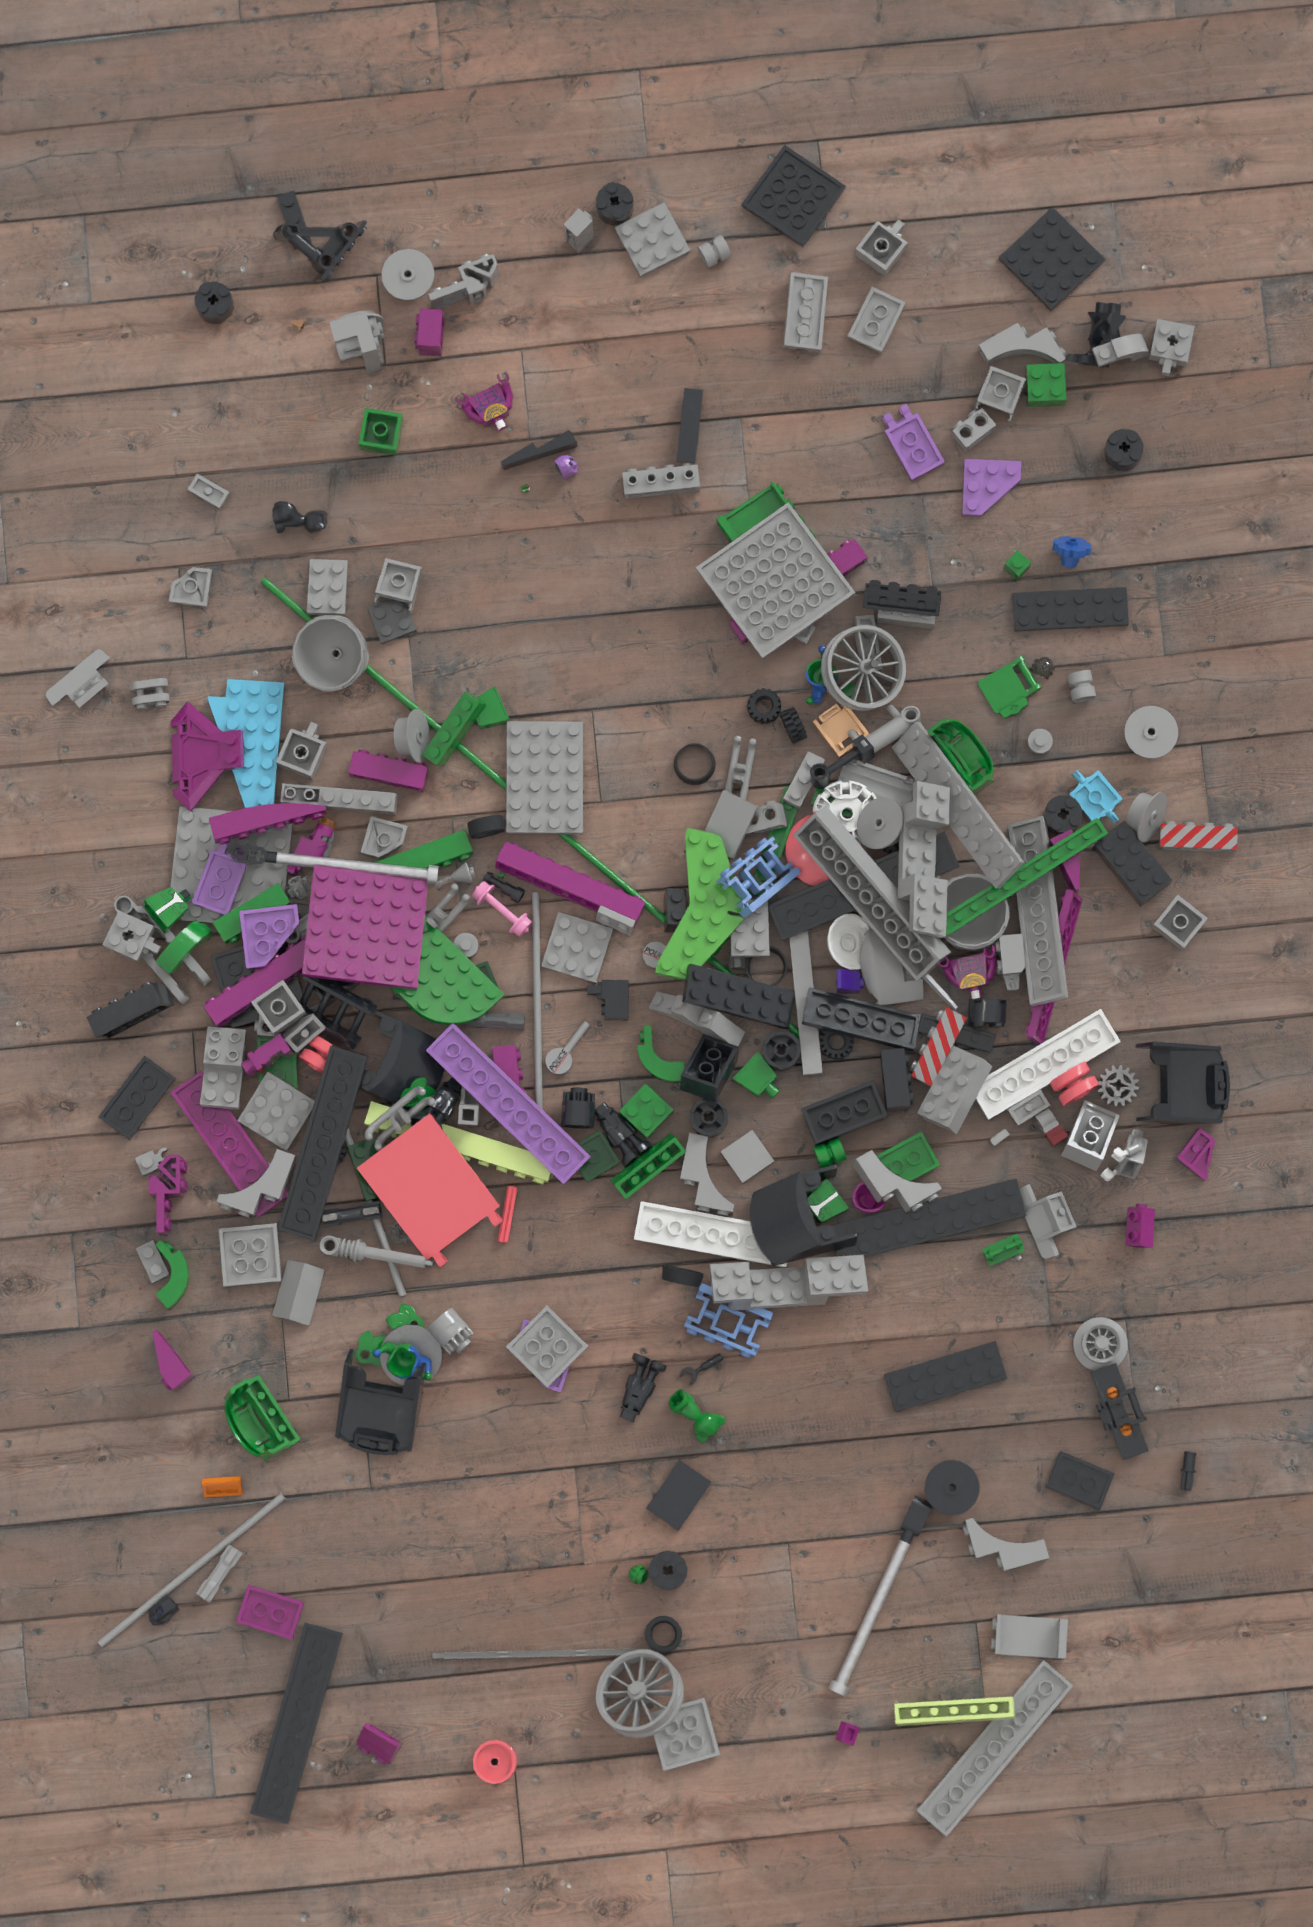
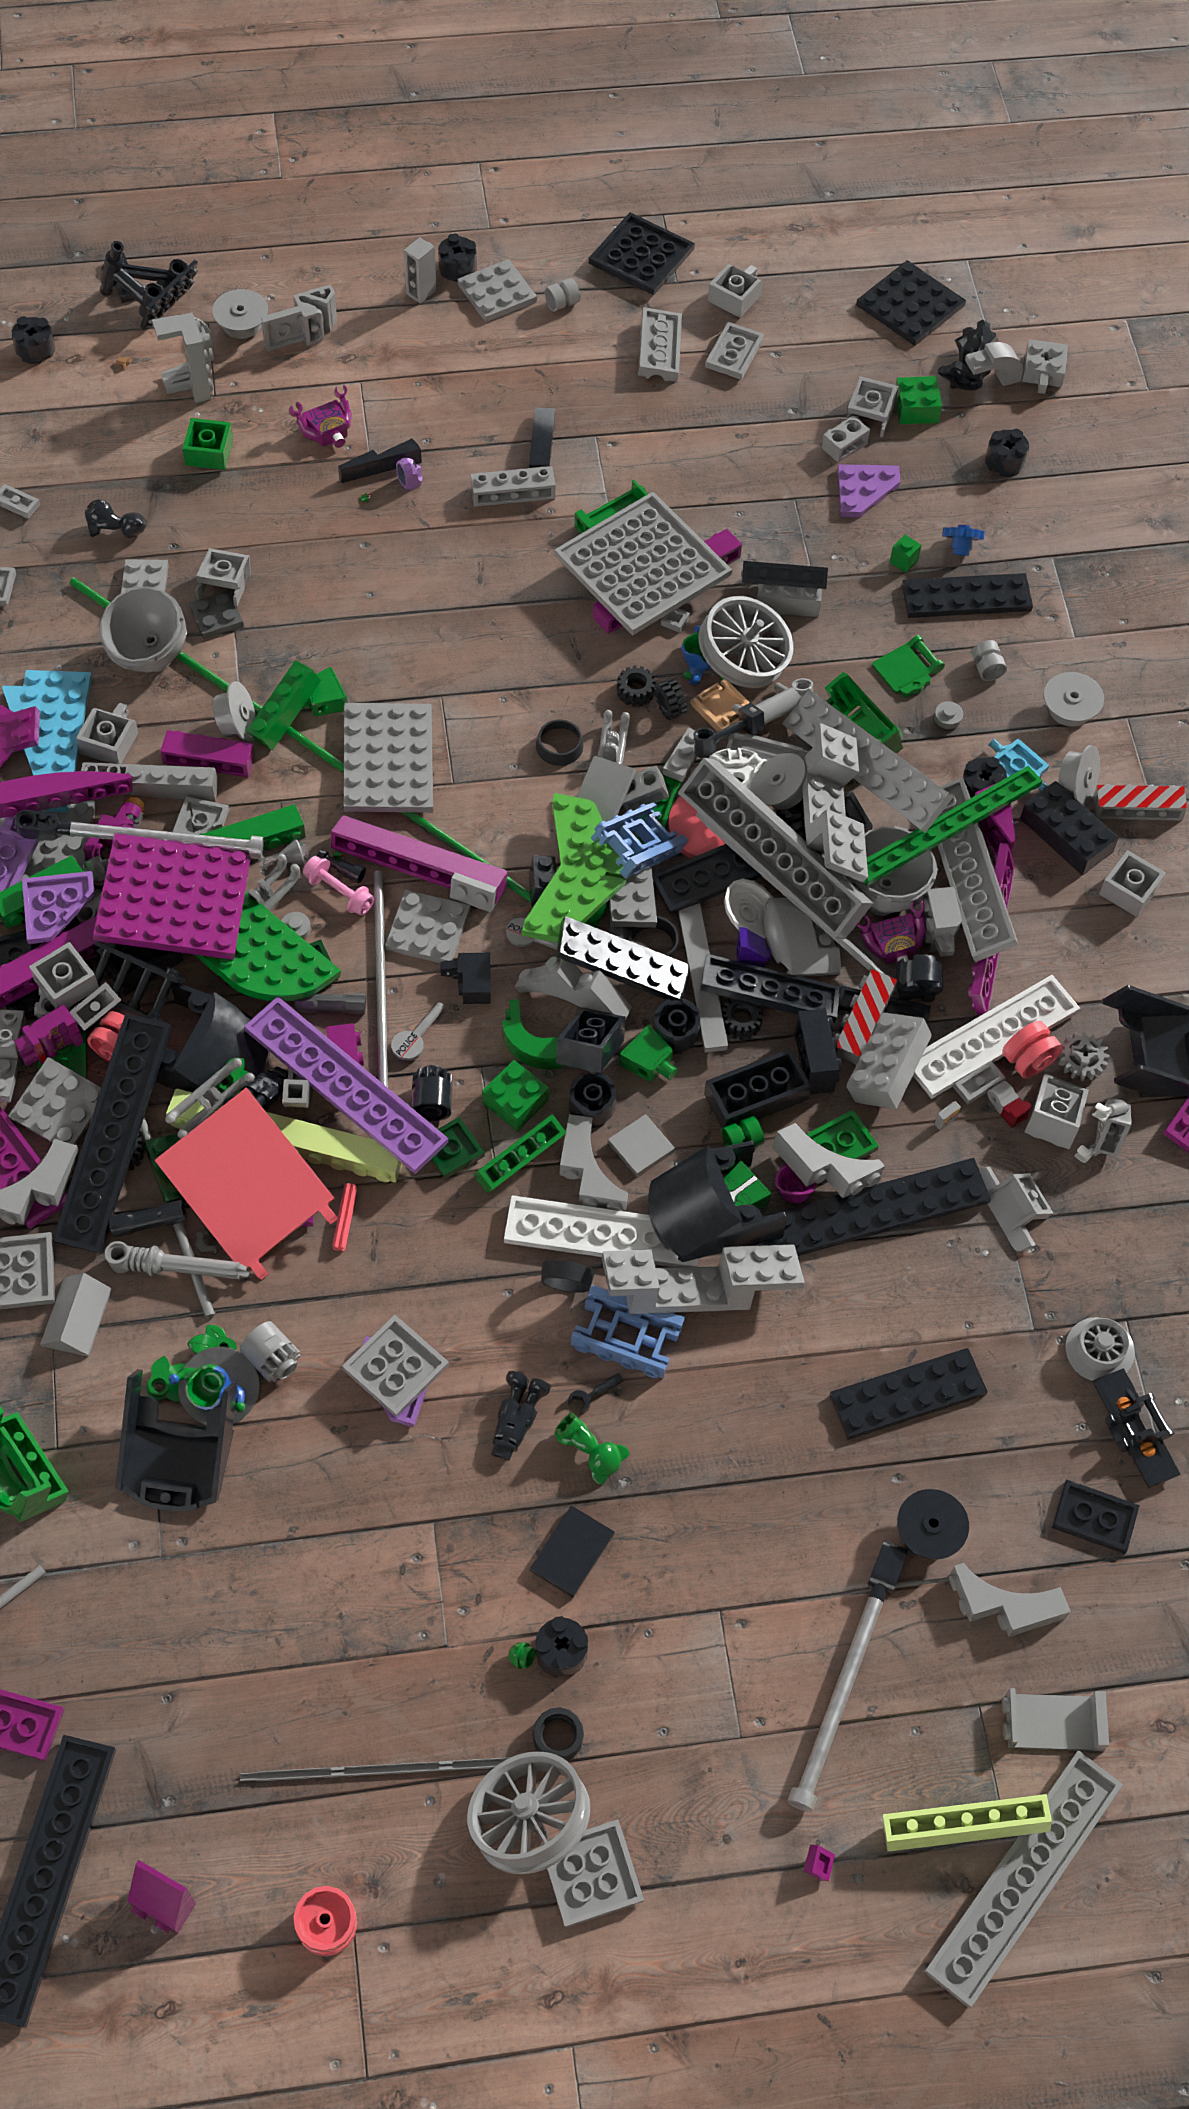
camera: 10 degrees left, 20 degrees down
(430, 332) = (262, 358): magenta brick -> none
(486, 826) = (320, 792): black tyre -> none
(618, 1131) = (483, 1120): black piece -> none
(912, 443) = (781, 452): medium lavender tile -> none
(1003, 1249) = (966, 1241): green hinge -> none
(1015, 342) = (882, 366): light grey arch -> none
(1043, 672) = (943, 648): clear smoke animal -> none
(1140, 1226) = (1132, 1208): magenta brick -> none

